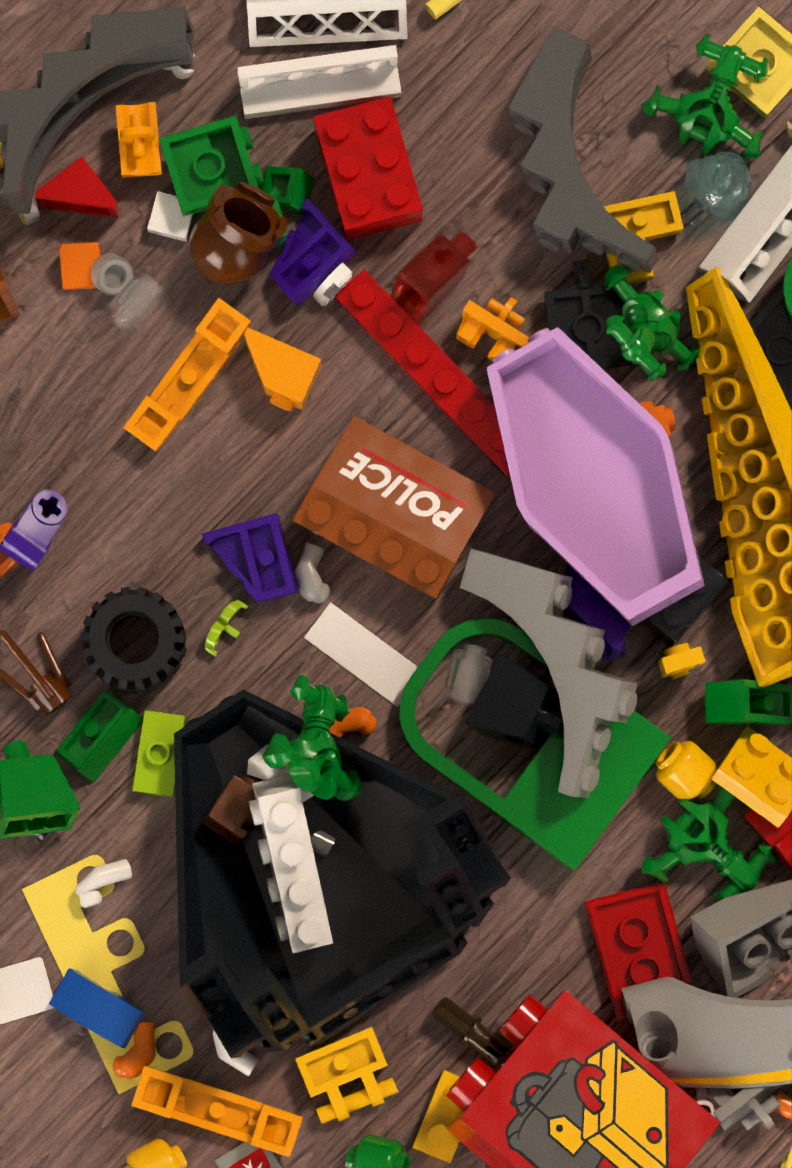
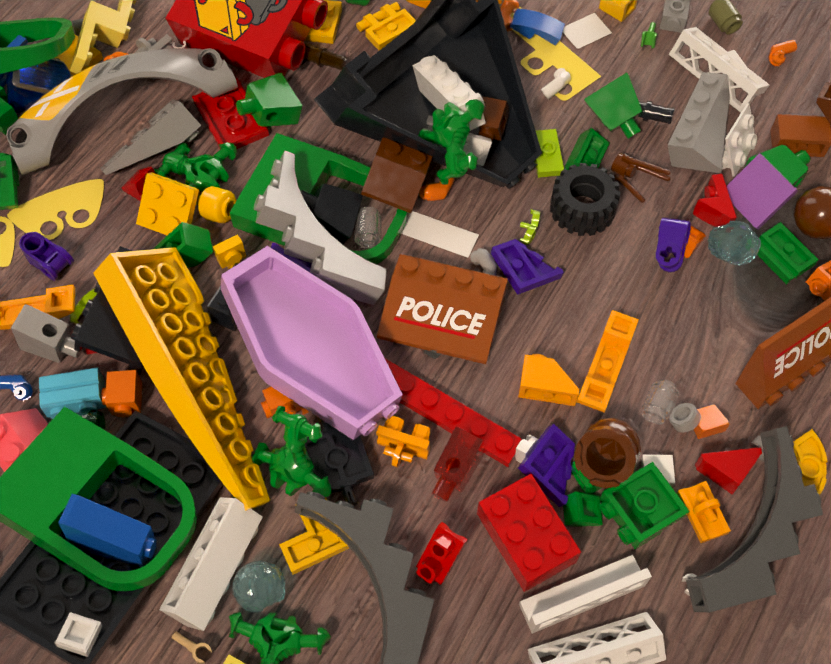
camera: 170 degrees right, 20 degrees down
(411, 731) = (396, 175): none -> reddish brown slope
(486, 164) = (440, 554): none -> red hips
(573, 944) = (271, 102): none -> green torso

